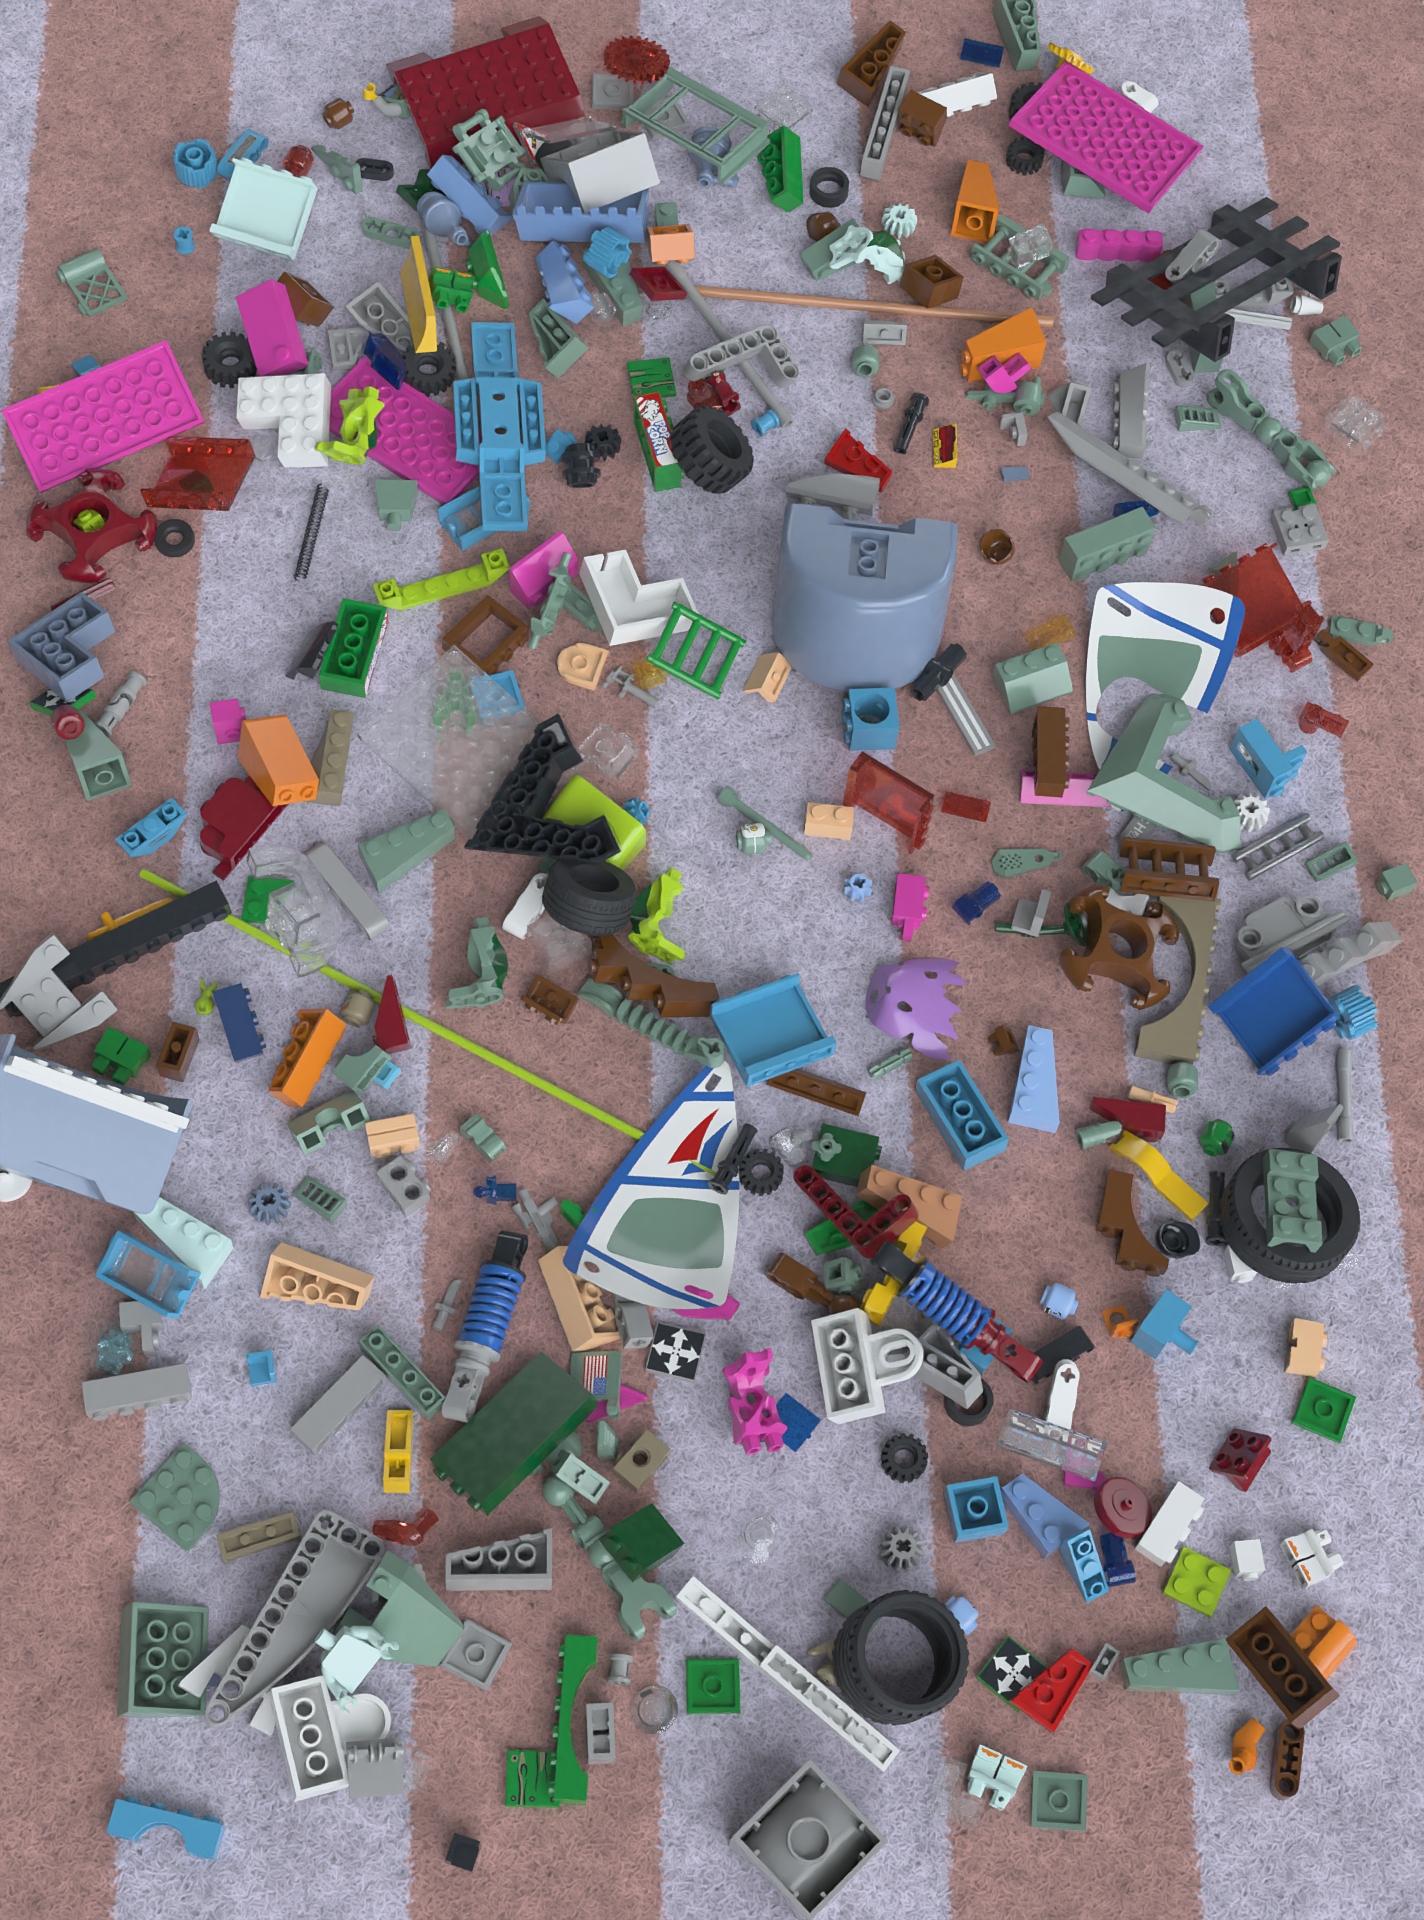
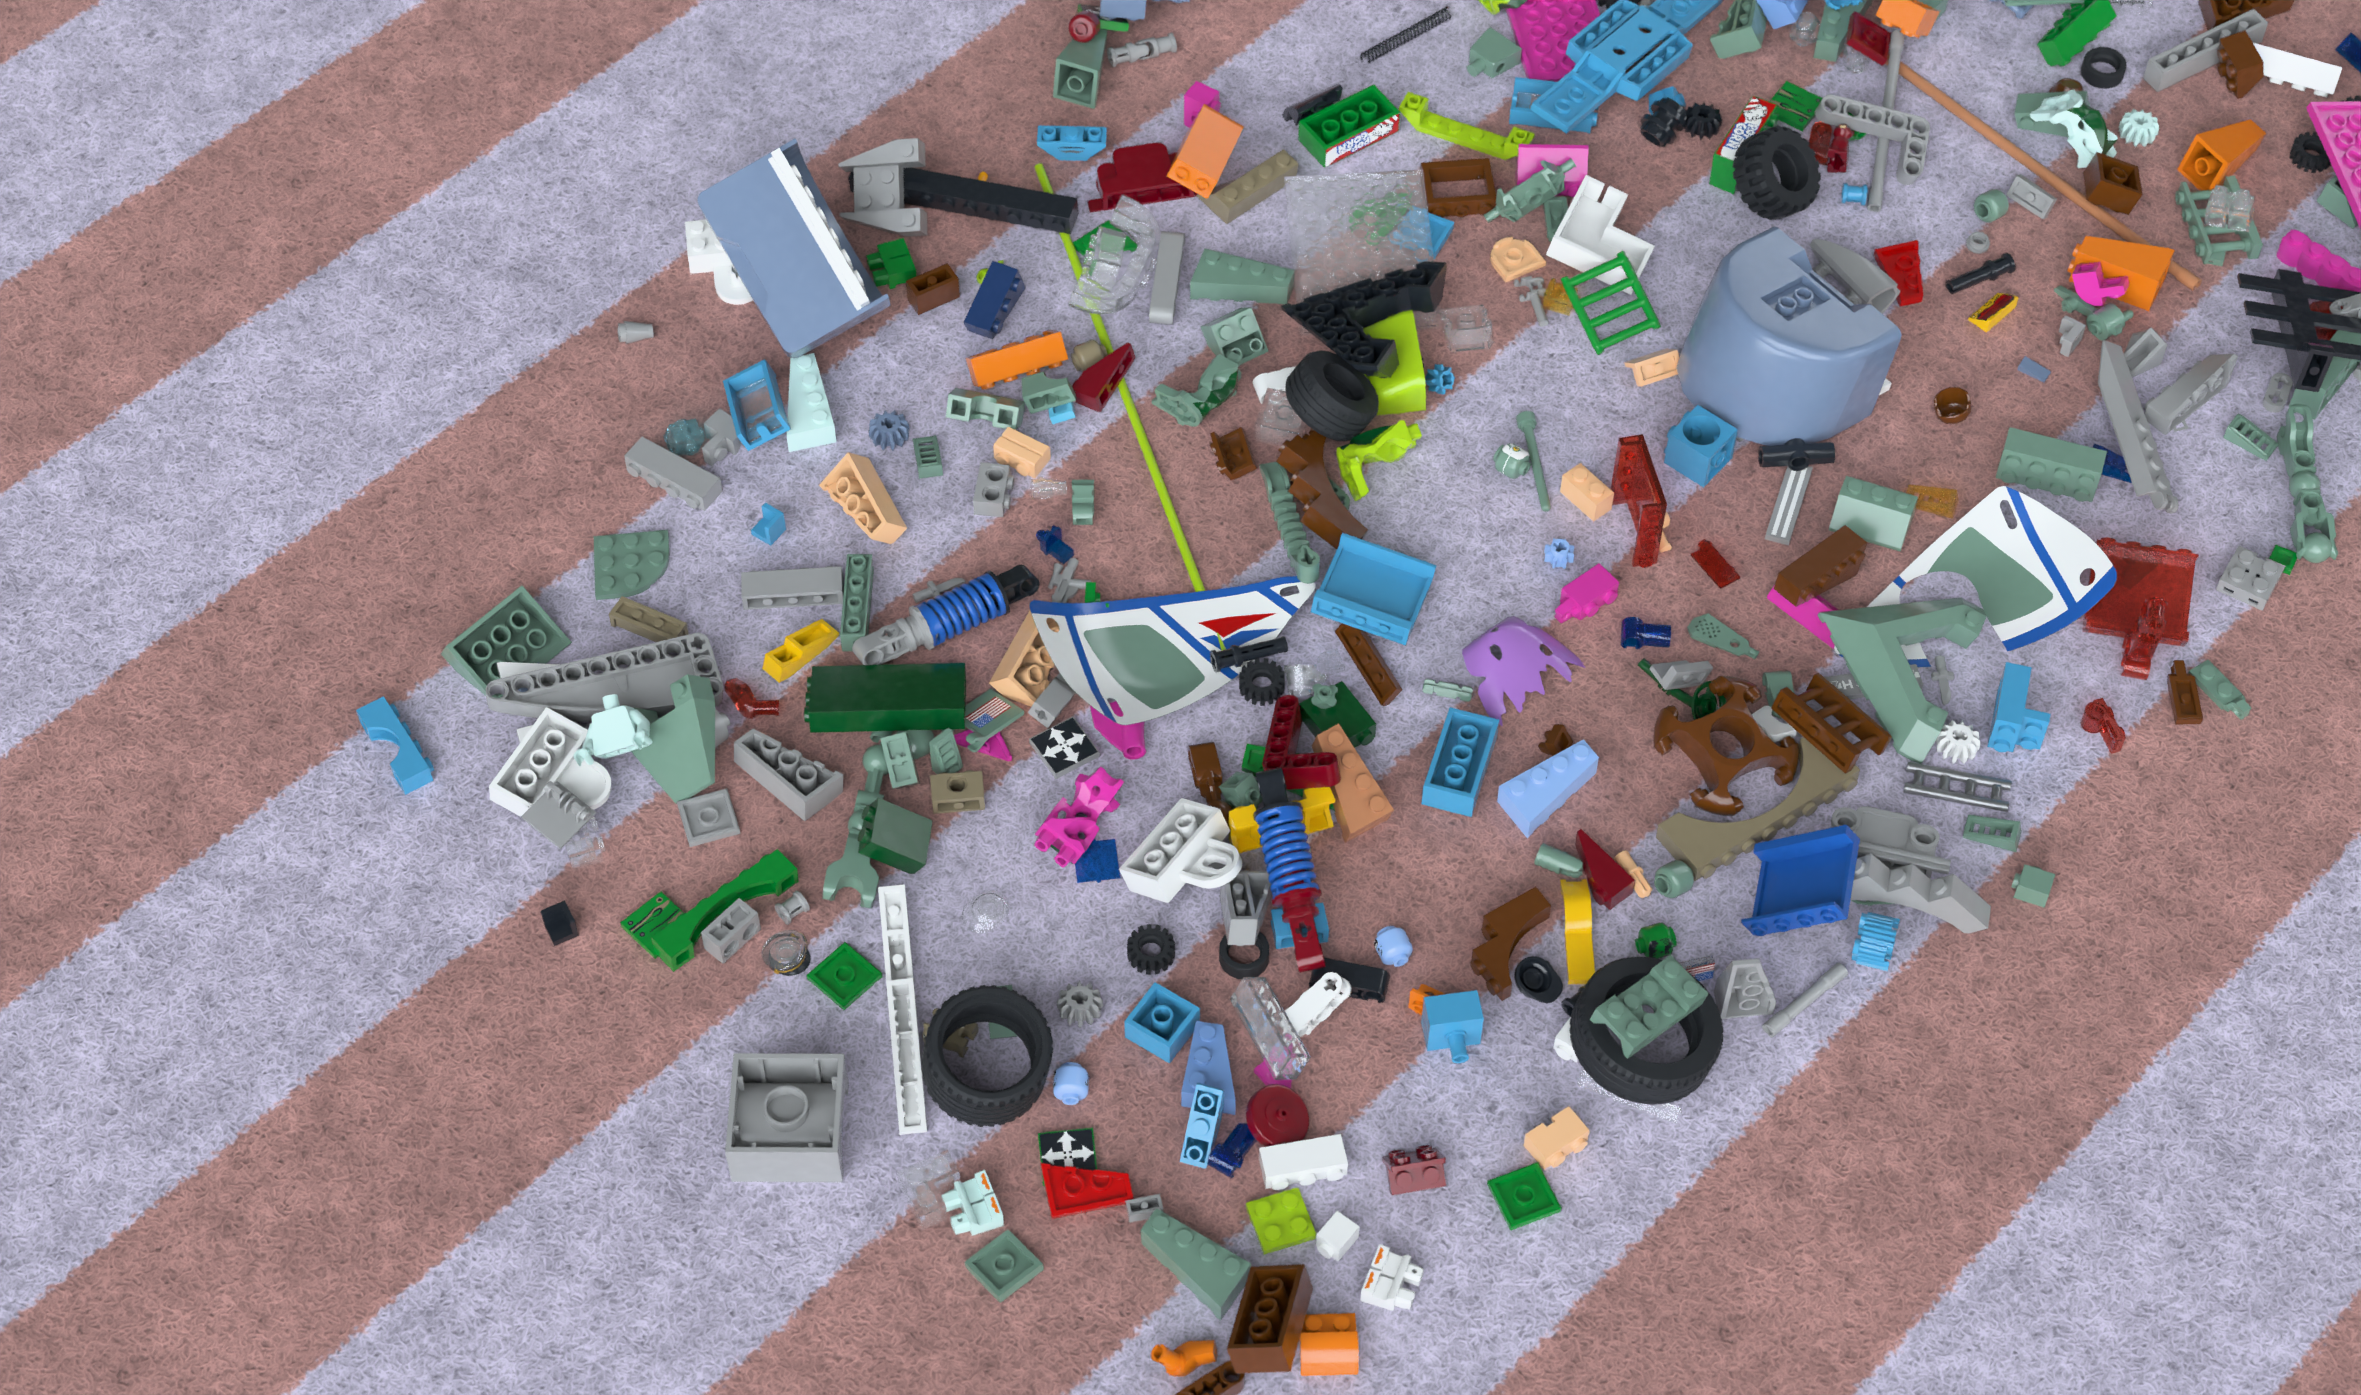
camera: 50 degrees right, 10 degrees down
(450, 900) = (1235, 333): none -> sand green slope

